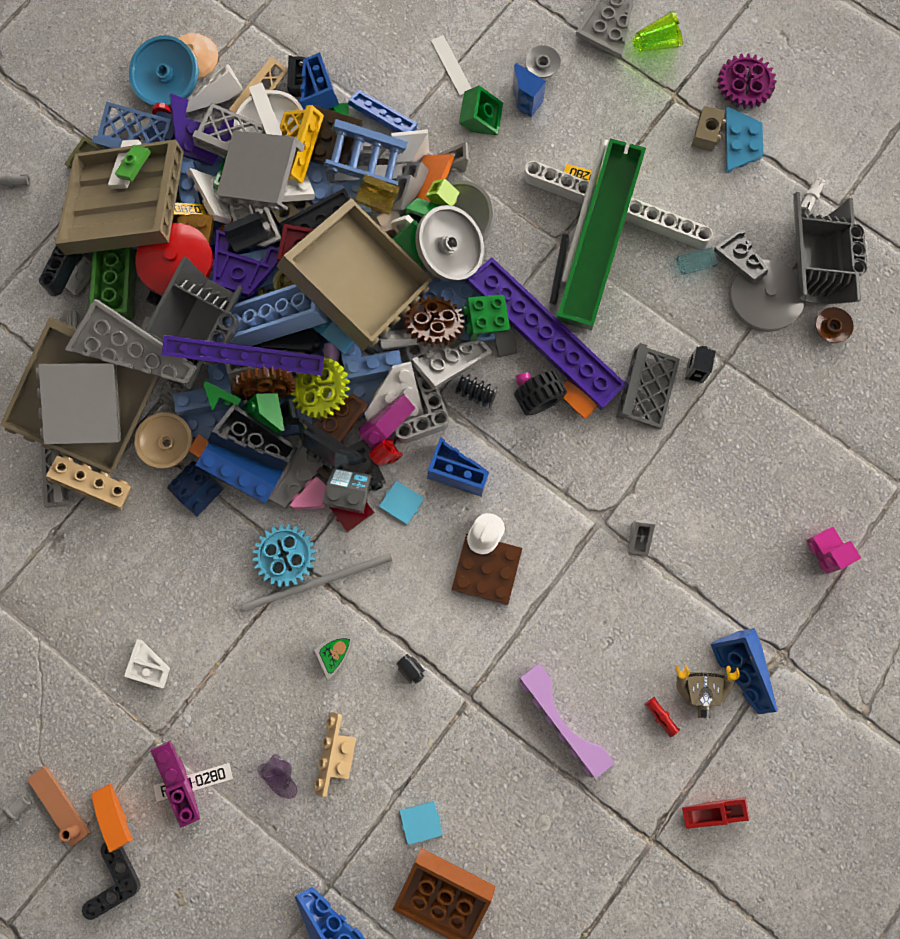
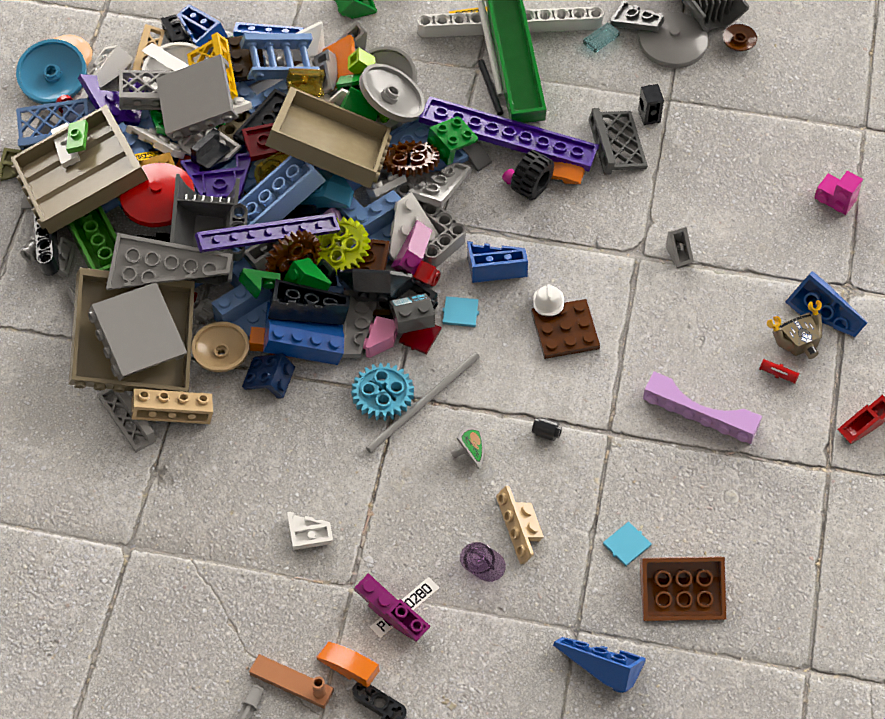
camera: 30 degrees left, 20 degrees down
(476, 390) = (476, 199): black piece -> none

